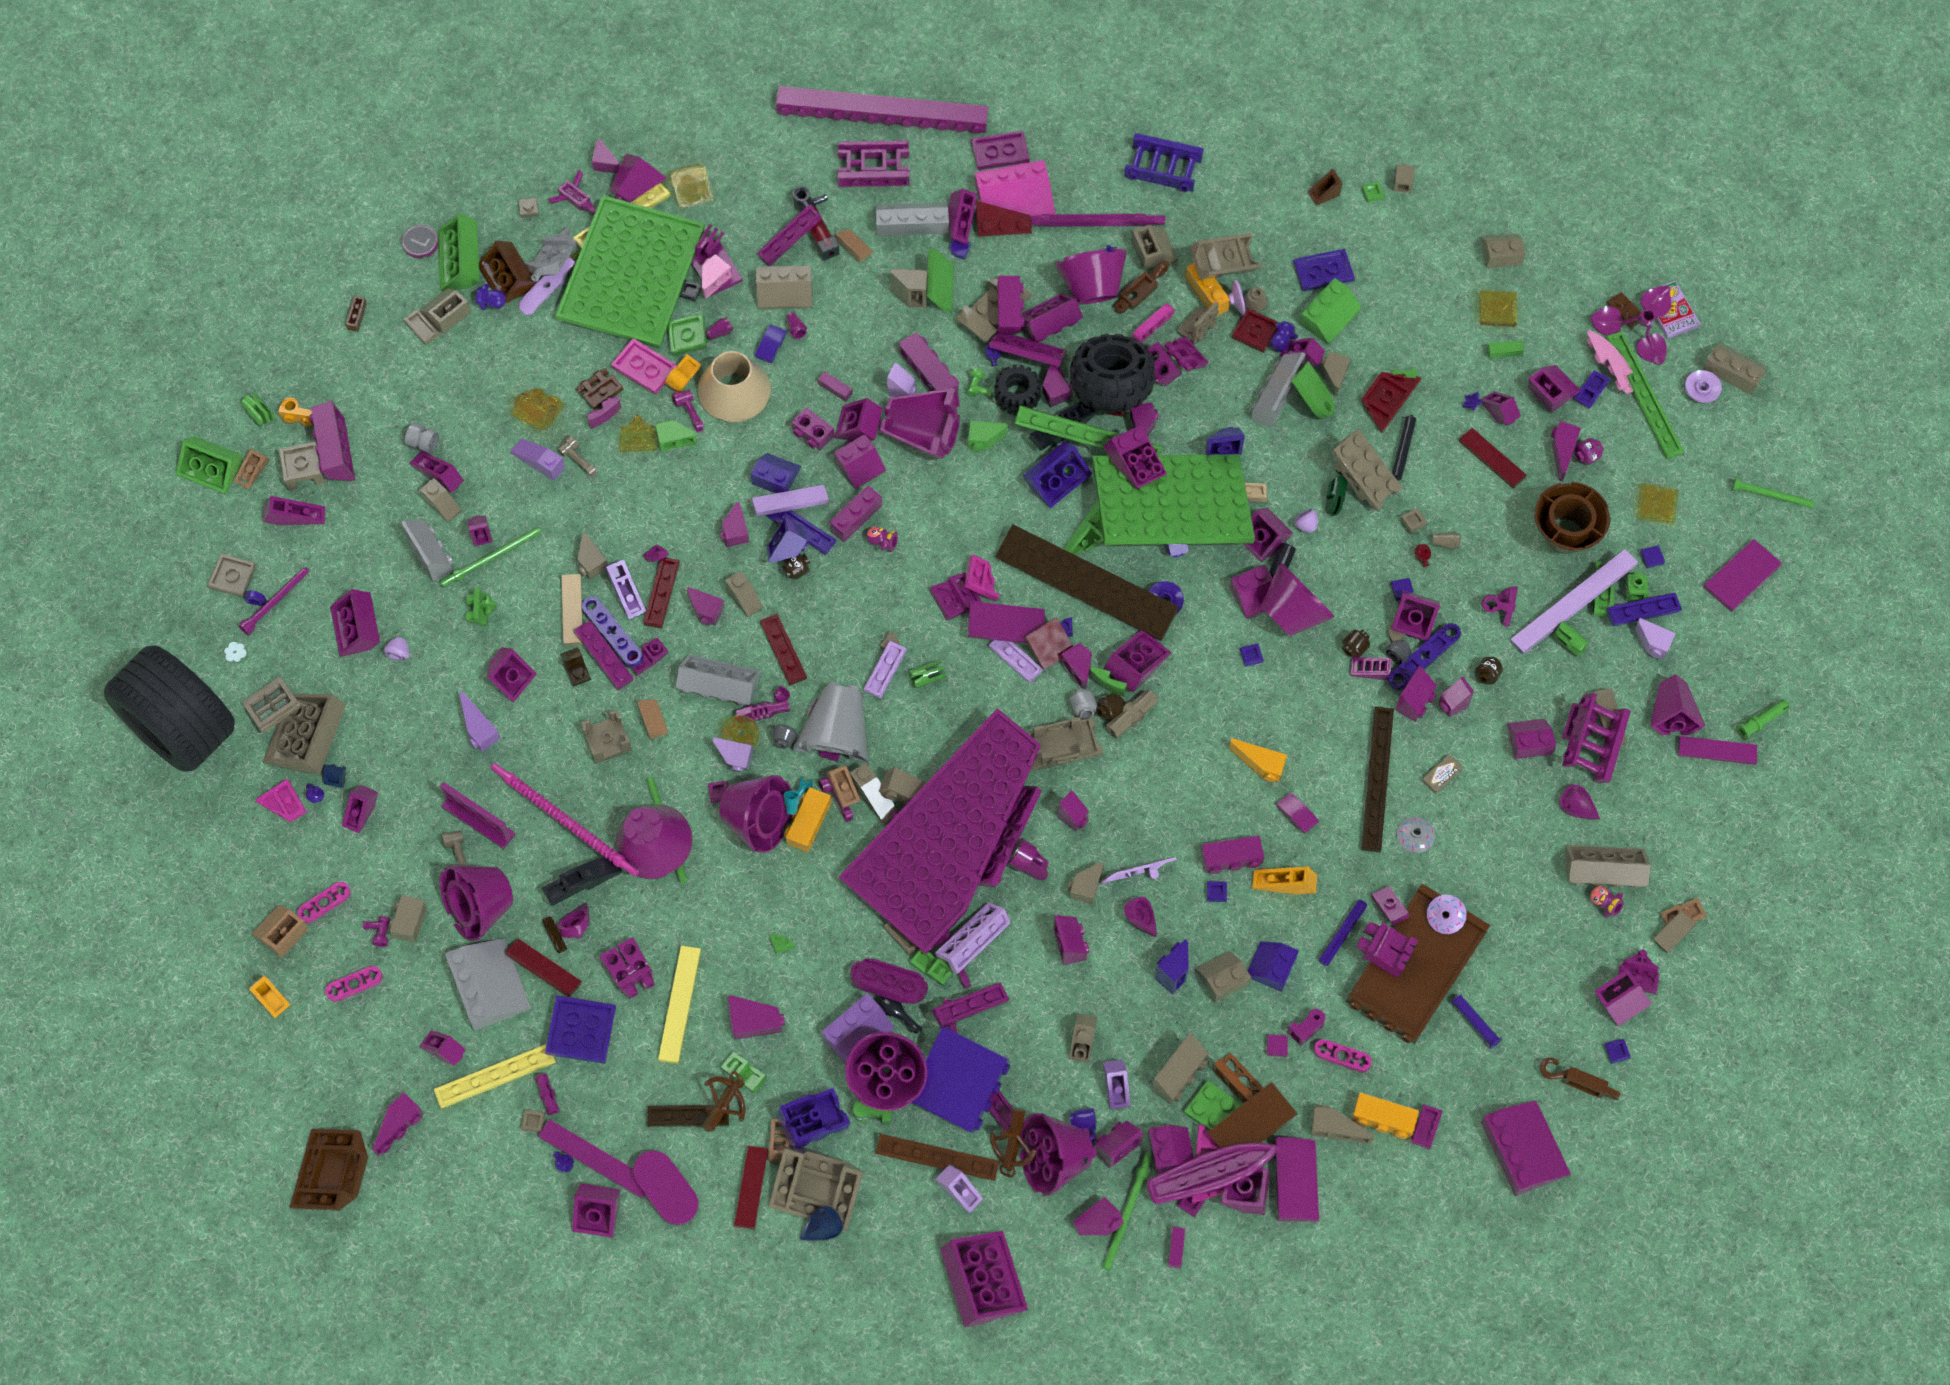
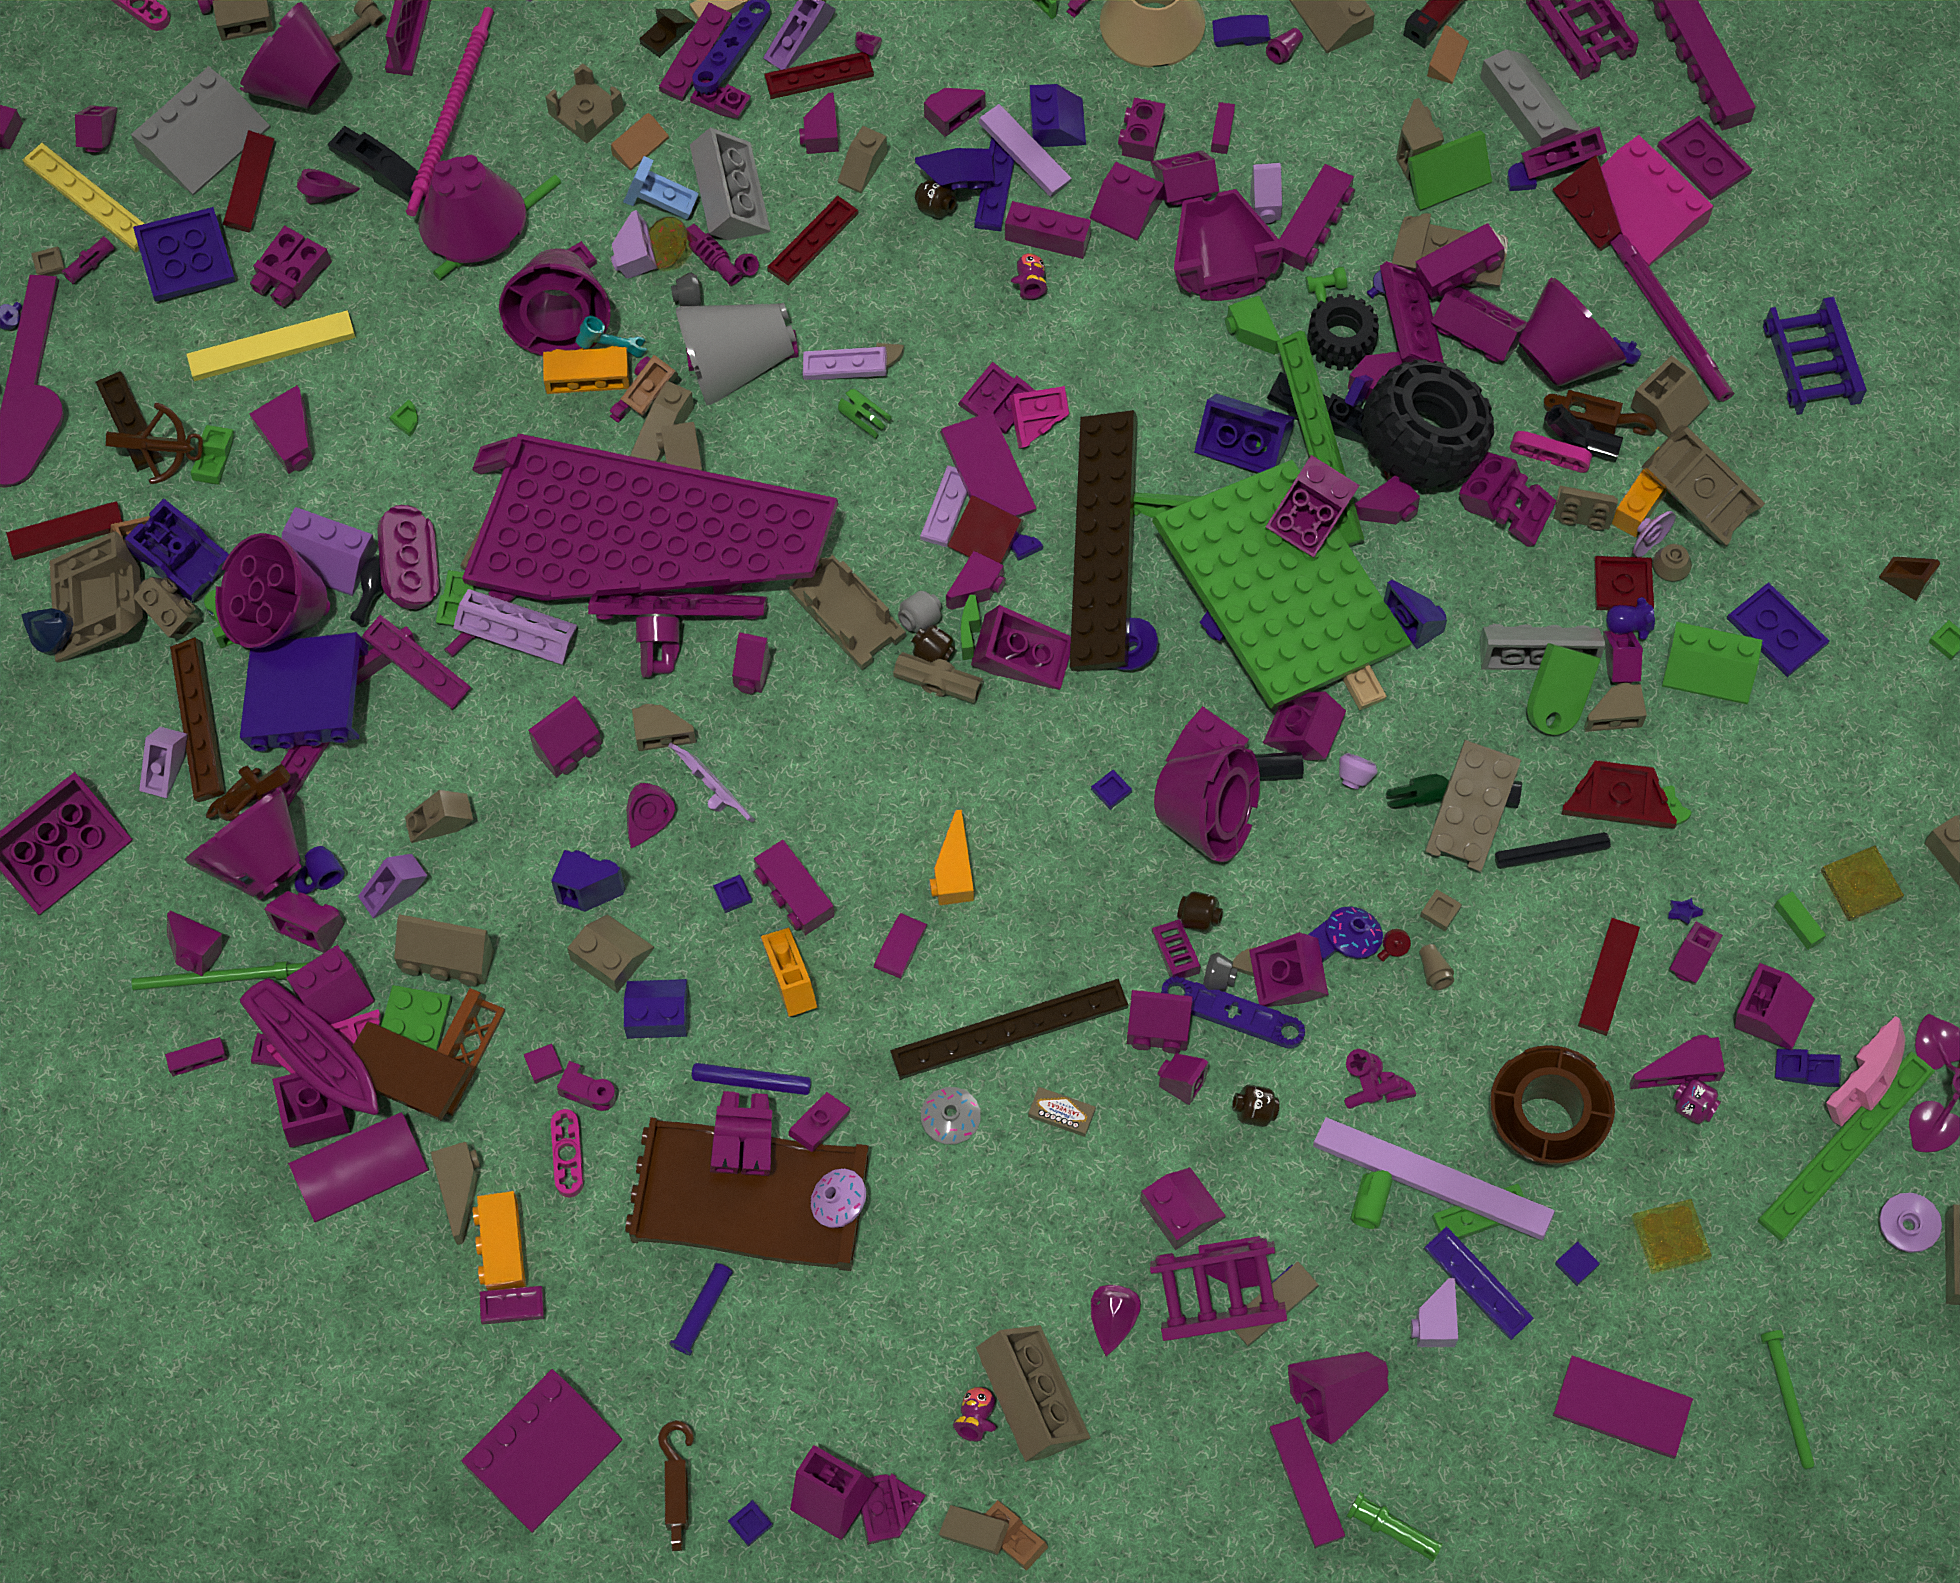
camera: 65 degrees right, 0 degrees up
(554, 934) = (286, 186): dark brown axle -> none
(695, 723) = (660, 191): none -> light blue bracket
(845, 897) = (497, 455): none -> magenta tile
(849, 1142) = (166, 607): none -> dark tan brick
(1066, 398) = (1358, 390): none -> dark purple tile
(1153, 302) = (1582, 433): none -> black piece
(1405, 571) = (1350, 940): none -> dark purple dish
(1633, 591) = (1503, 1265): bright green brick -> none

